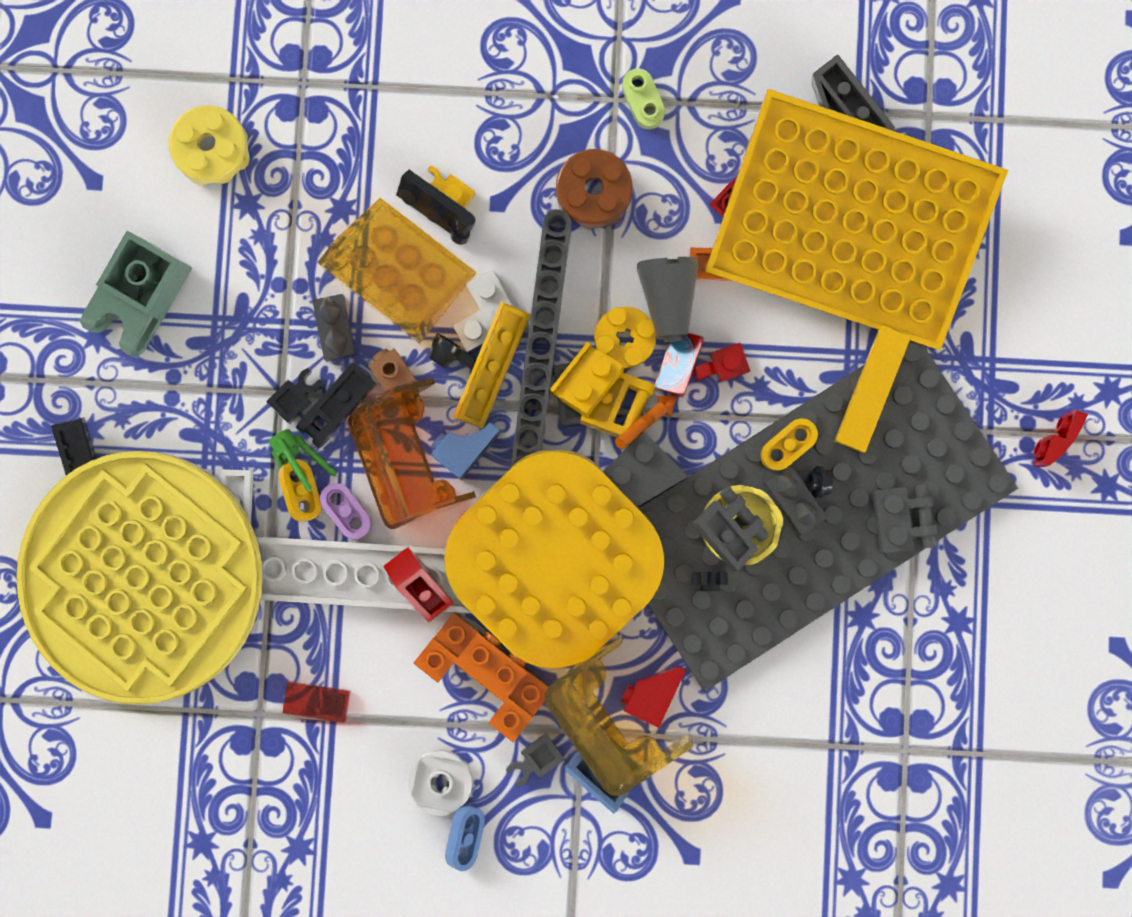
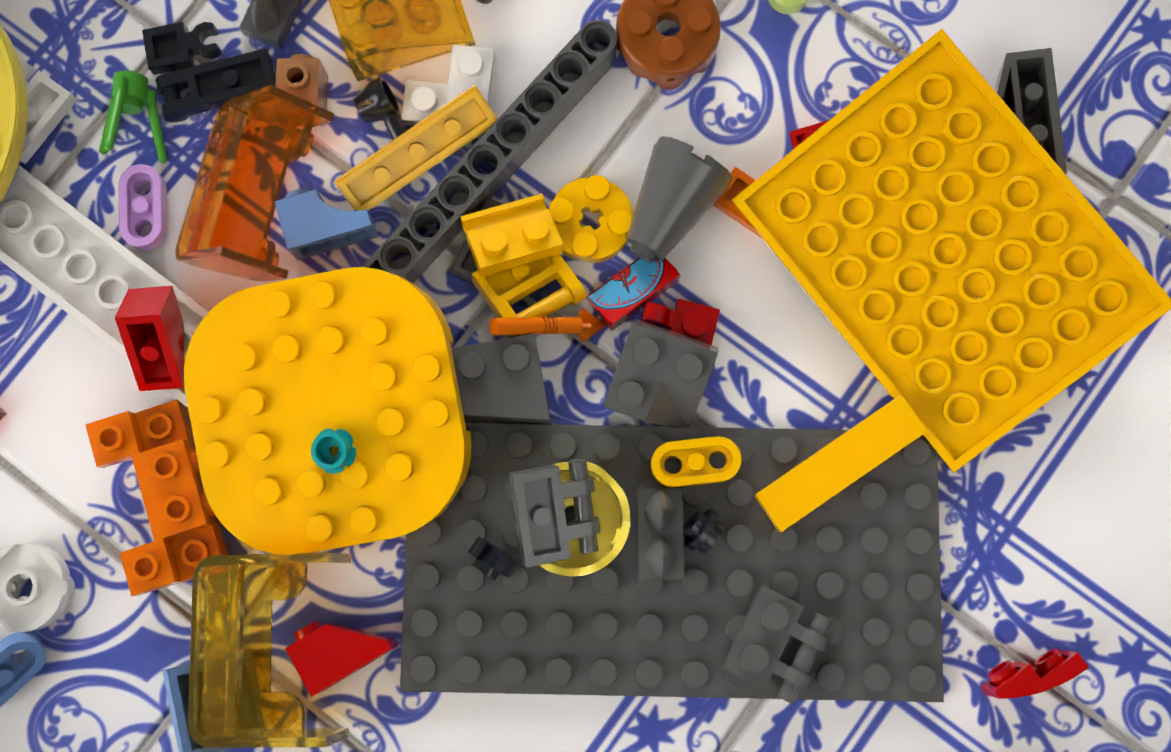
camera: 35 degrees right, 5 degrees down
(295, 492) = (115, 160): yellow plate -> none
(539, 757) = (153, 638): dark grey plate -> none
(575, 586) = (322, 453): none -> teal plate
(733, 406) = (660, 376): none -> dark grey slope

